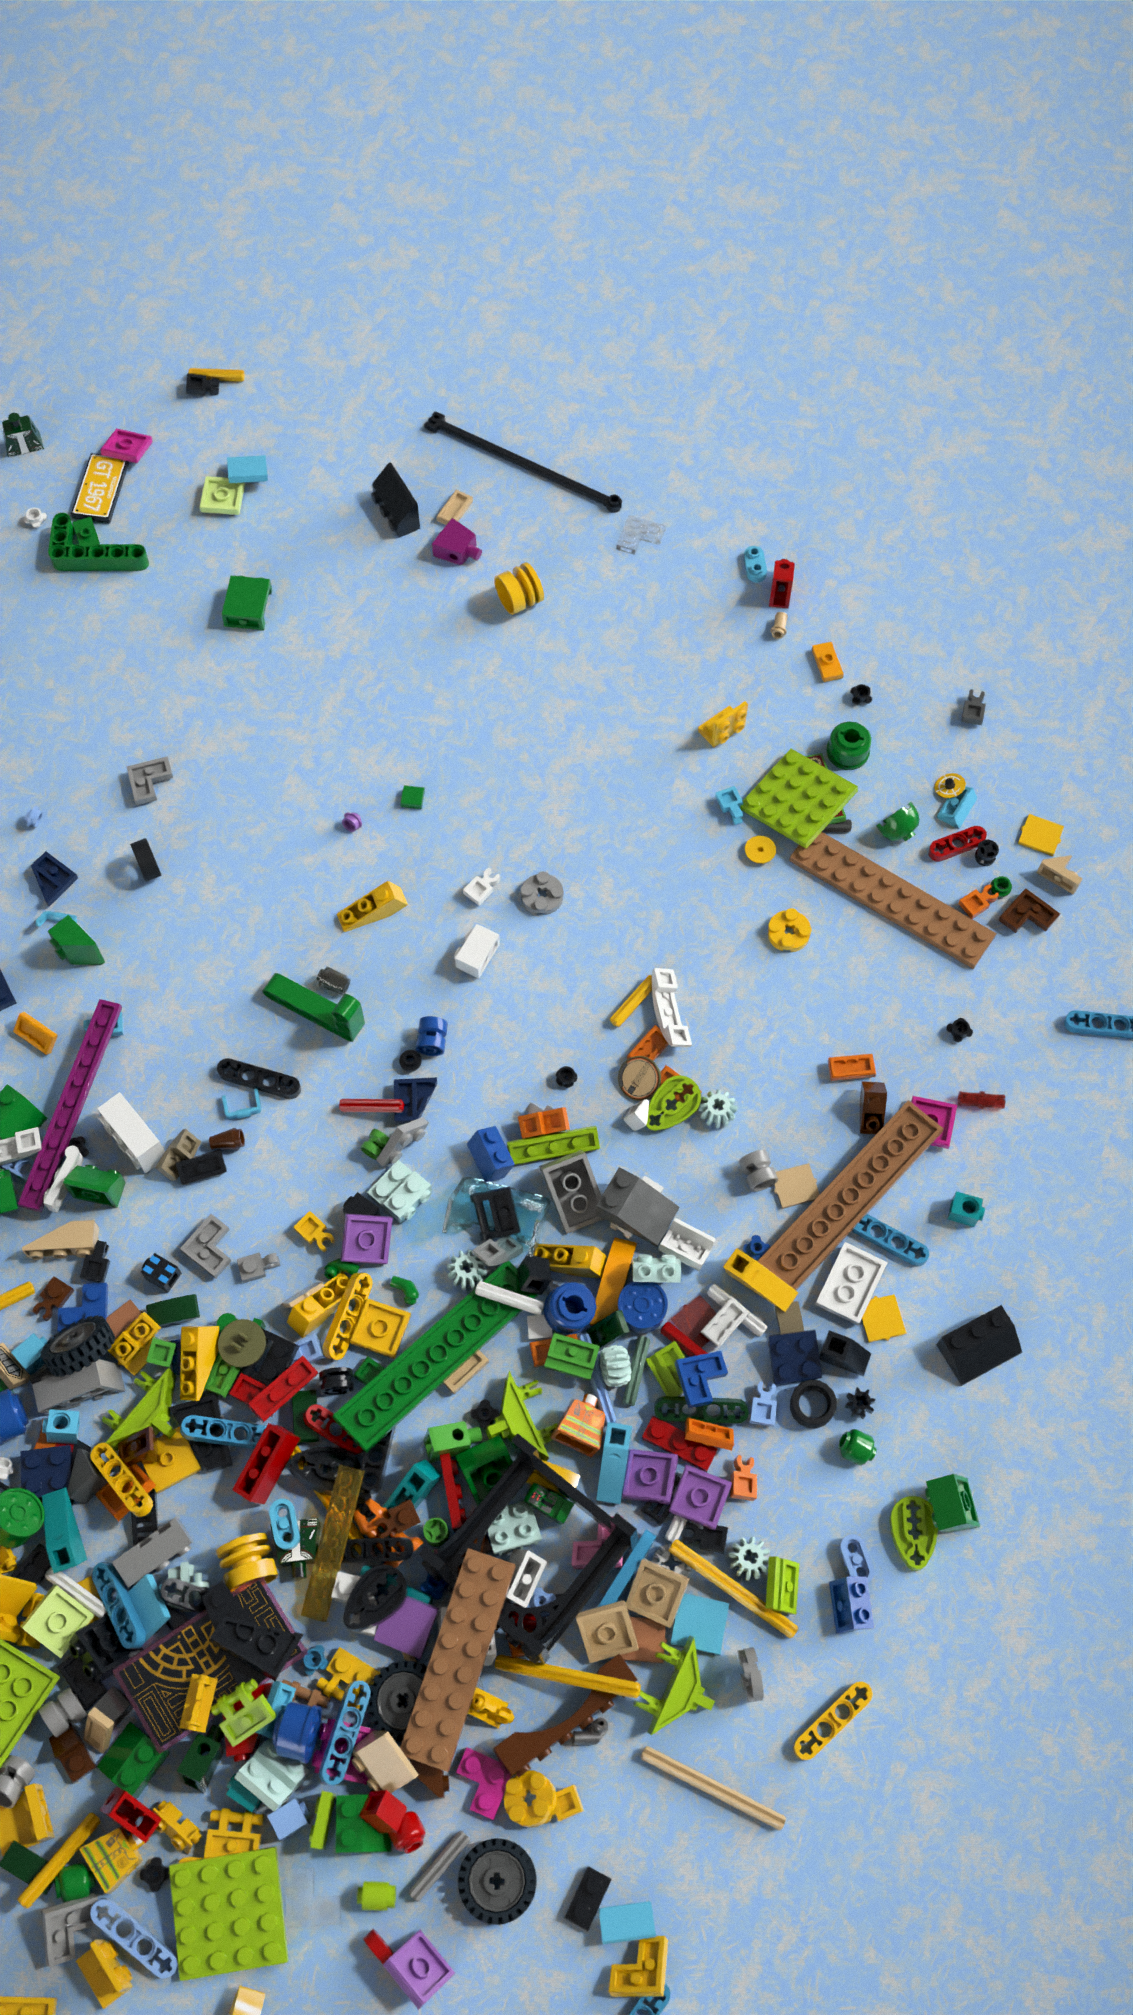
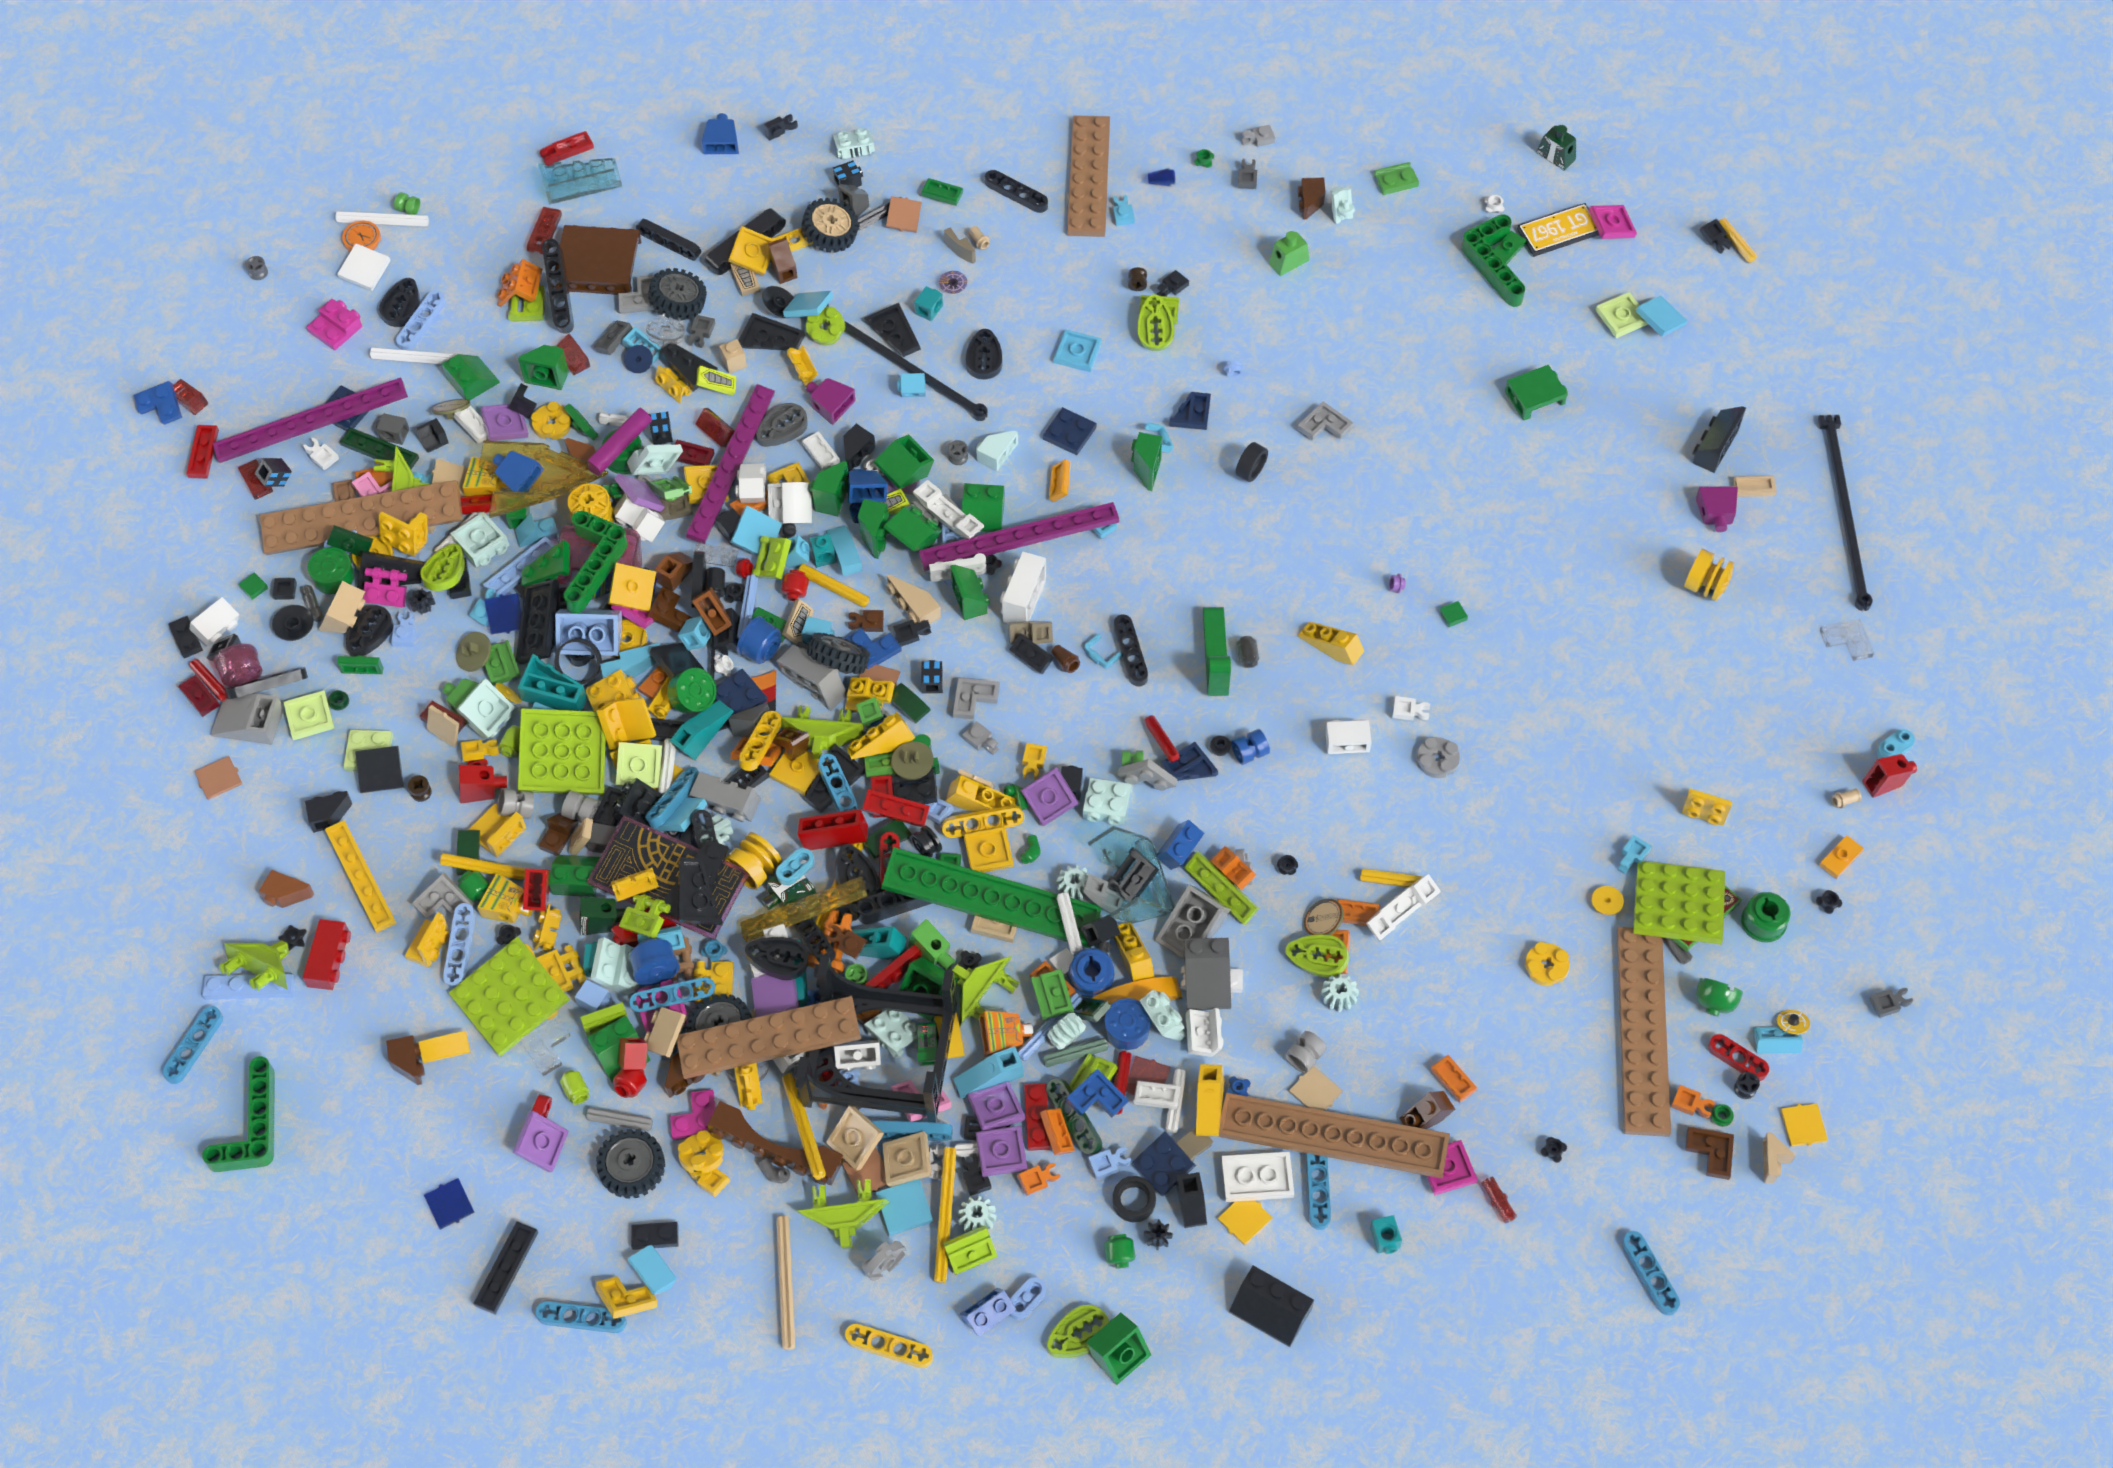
camera: 60 degrees right, 5 degrees down
(66, 1435) = (776, 691): medium azure brick -> none
(637, 1115) = (1288, 935): white slope -> none

